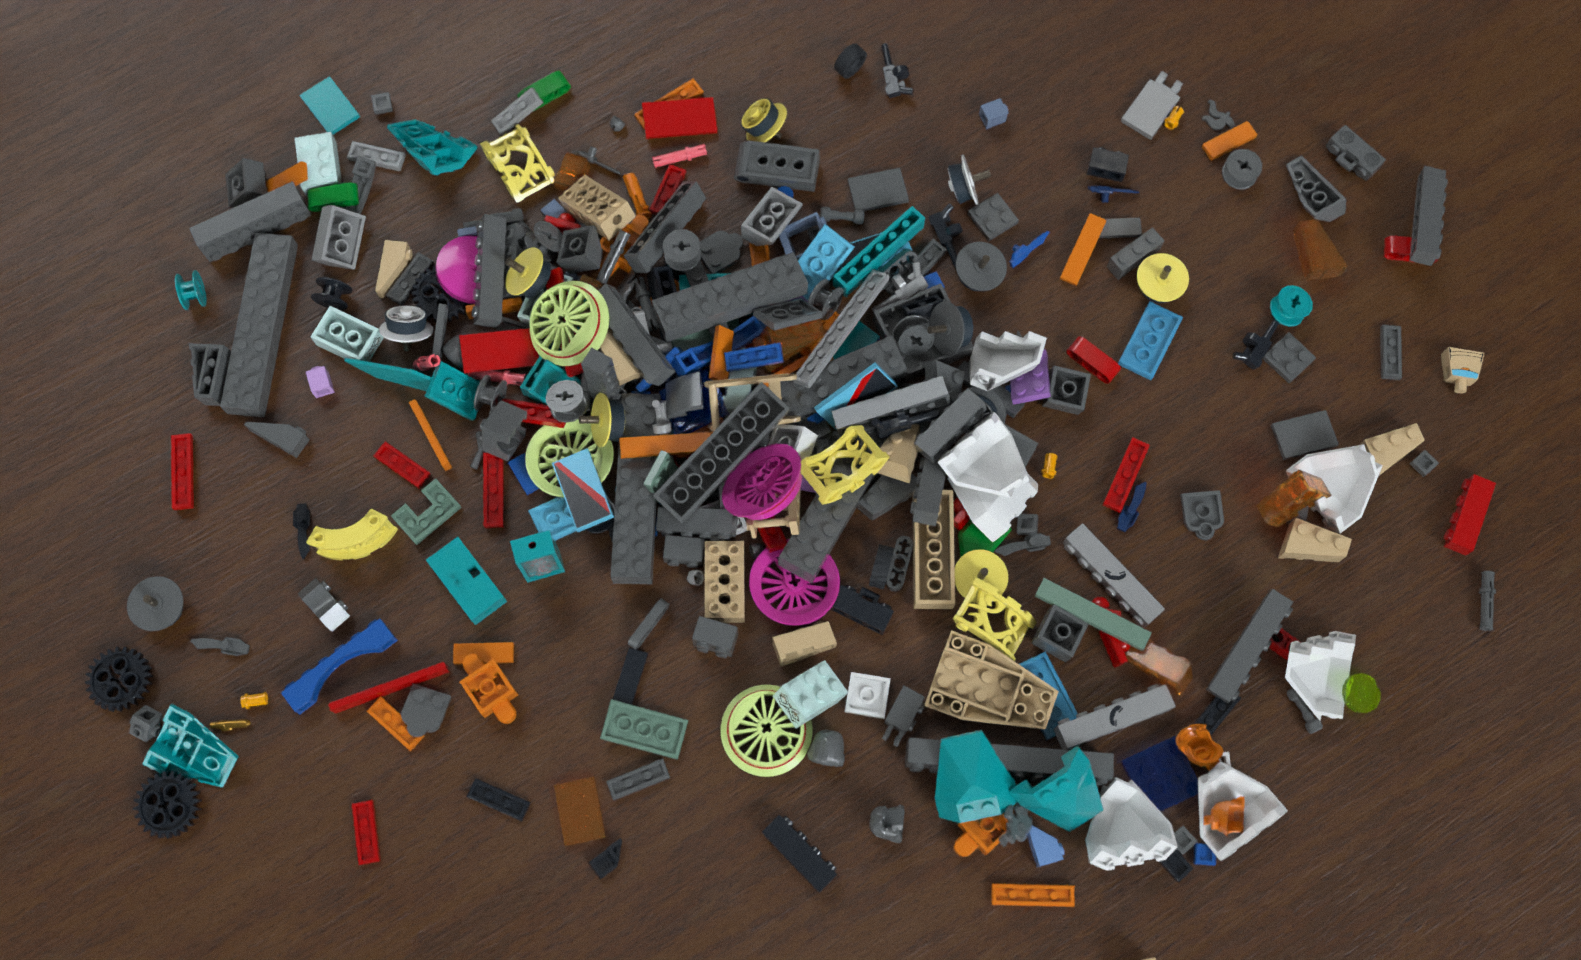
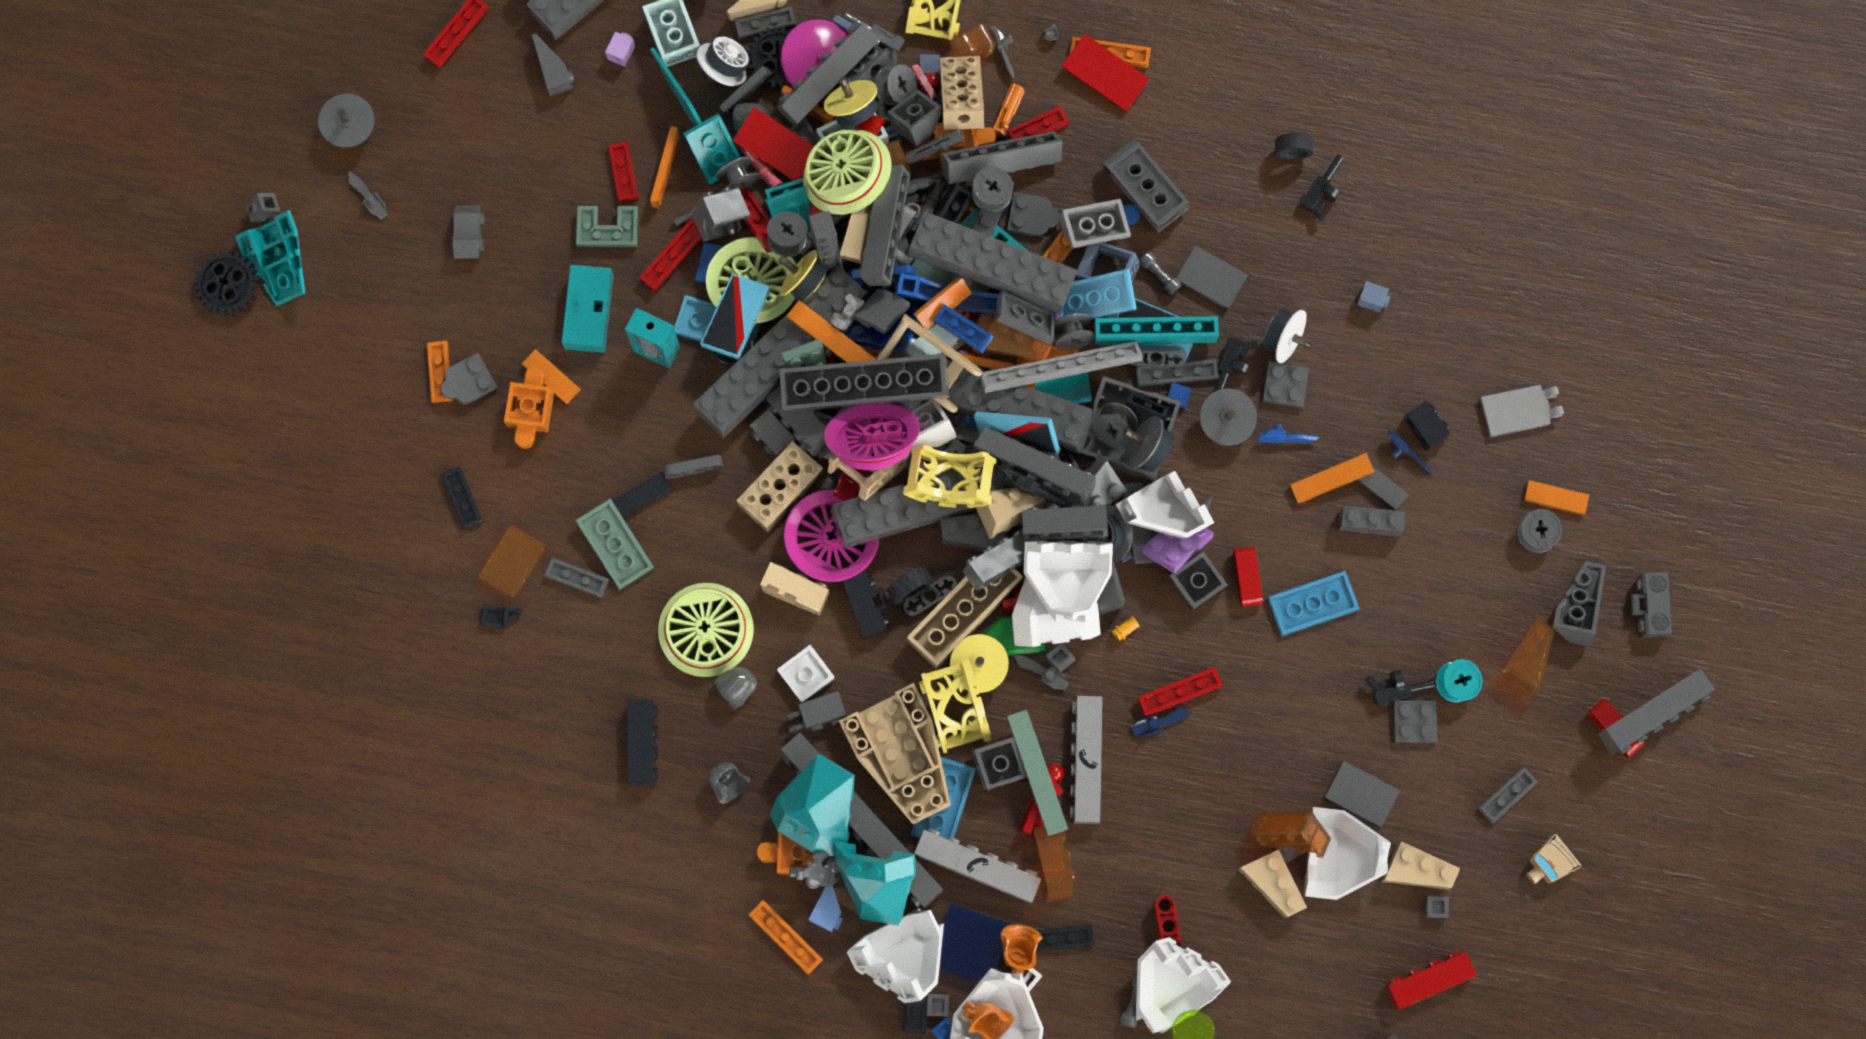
camera: 45 degrees right, 5 degrees up
(103, 690) = (255, 154): black gear -> none
(229, 724) = (318, 261): pearl gold piece -> none
(254, 700) = (353, 259): light orange pin -> none
(301, 521) = (508, 151): black piece -> none
(305, 691) = (396, 287): blue arch -> none
(353, 541) = (533, 203): light yellow fence -> none
(366, 832) = (347, 434): red tile -> none
(388, 687) = (458, 339): red tile -> none
(426, 362) = (713, 103): coral pin -> none
(681, 155) = (1068, 102): coral pin -> none
(697, 574) = (766, 461): light grey hinge -> none
(715, 637) = (731, 522): dark grey brick -> none
(763, 120) = (1168, 136): light yellow piece -> none
(810, 694) = (760, 631): light aqua brick -> none
(905, 290) = (1148, 382): light grey piece -> none
(1162, 278) = (1371, 560): light yellow piece -> none
(1172, 121) = (1529, 435): light orange pin -> none
(1202, 512) = (1211, 778): dark grey plate -> none
(1223, 118) = (1564, 476): dark grey piece -> none
(1249, 646) = (1136, 910): dark grey brick -> none

